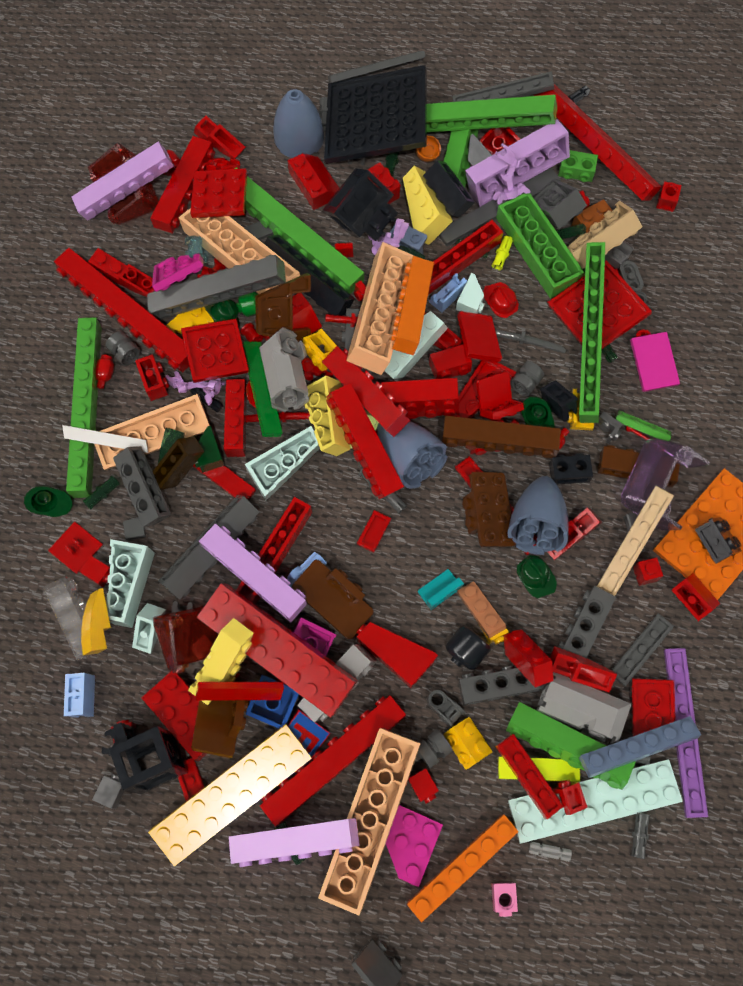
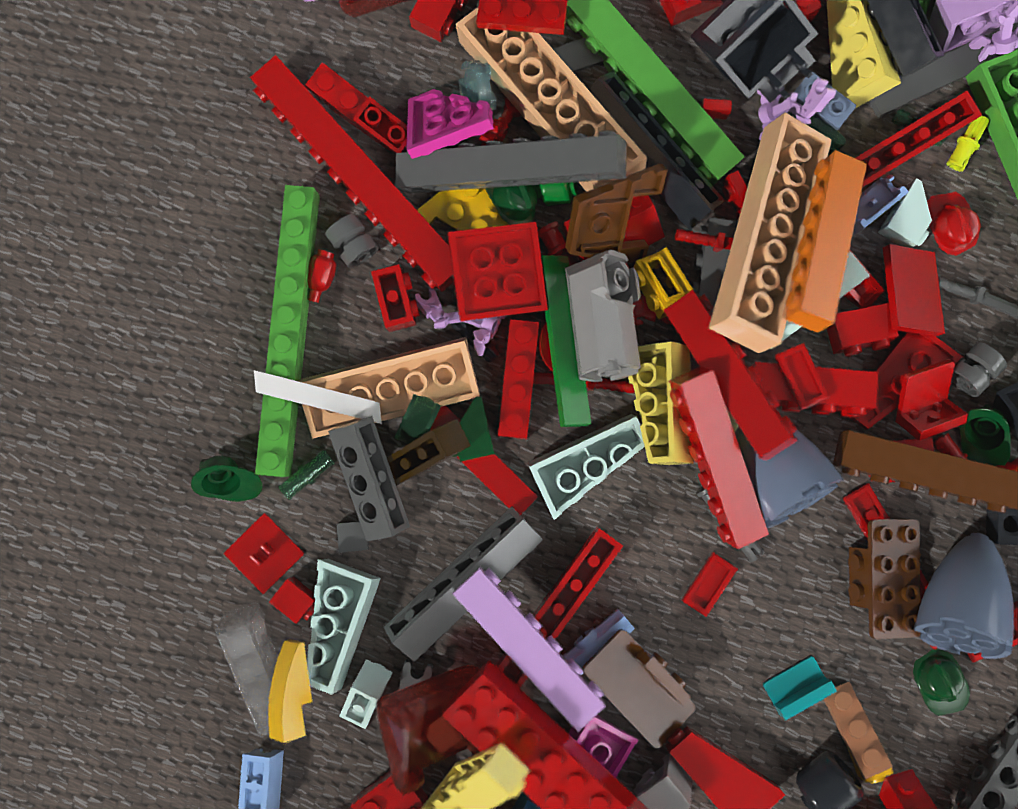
camera: 10 degrees right, 15 degrees up
(410, 385) = (802, 376): none -> red tile

